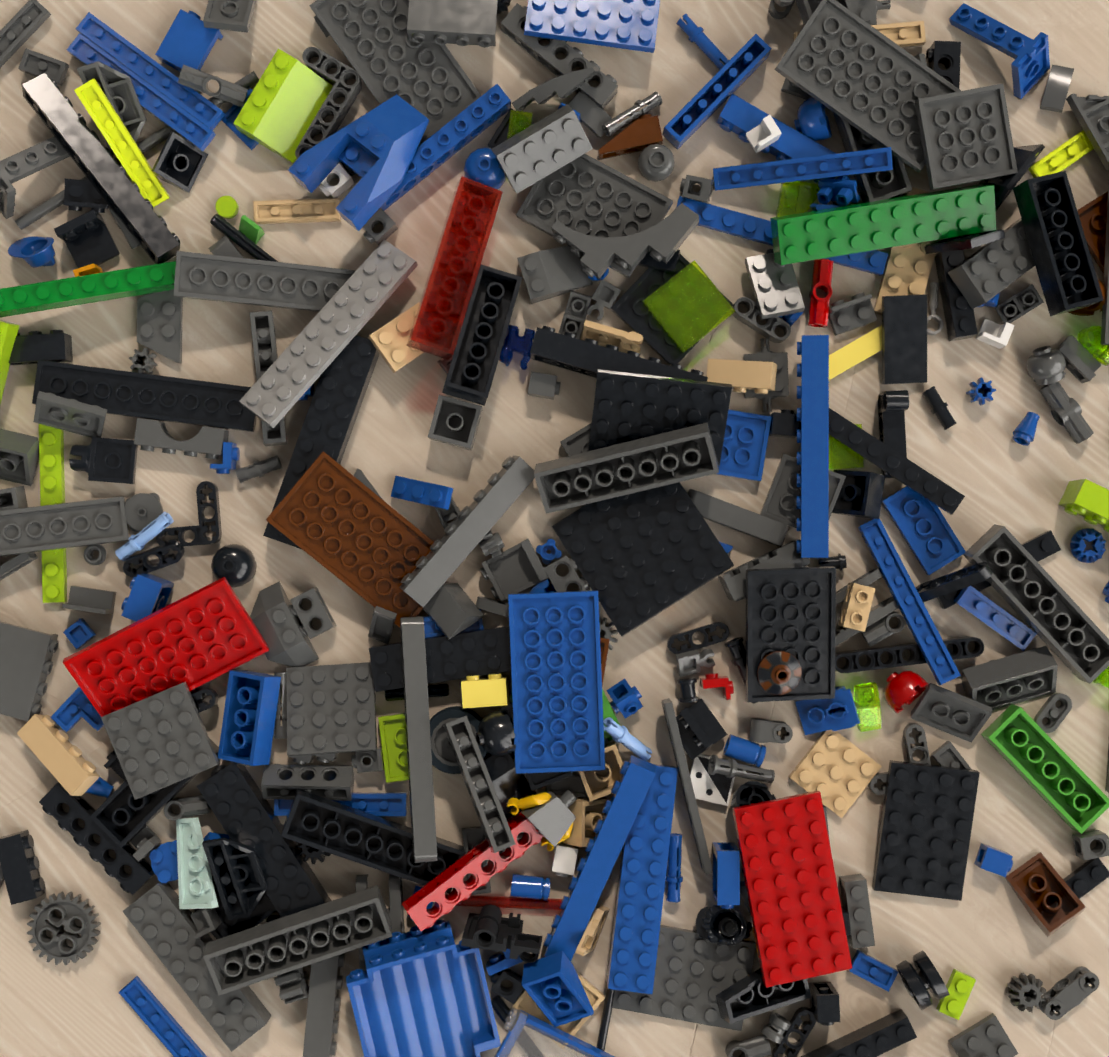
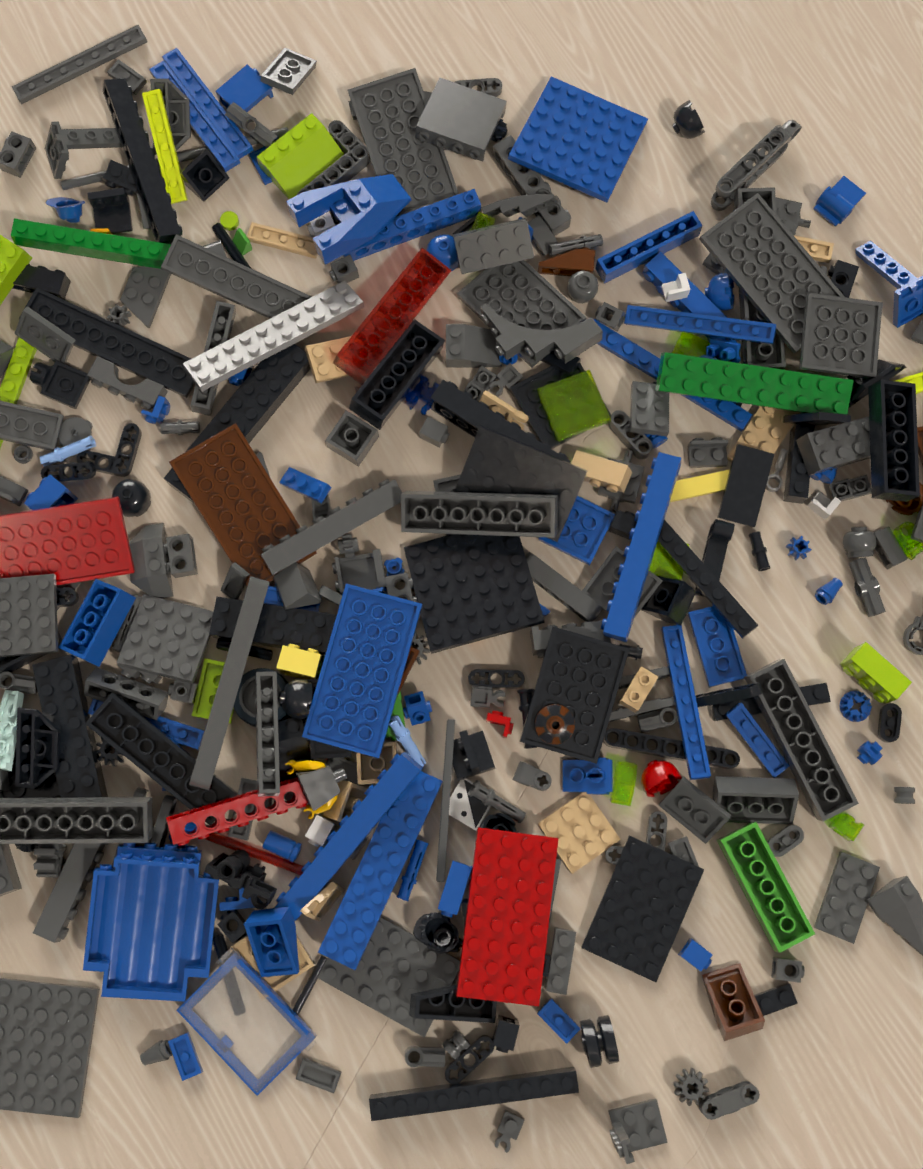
camera: 20 degrees right, 10 degrees down
(687, 690) = (473, 719): black bush -> none
(702, 41) = (646, 202): blue pin -> none
(744, 750) = (505, 787): blue piece -> none
(820, 280) = (690, 418): red piece -> none
(959, 988) = (627, 1068): lime plate -> none

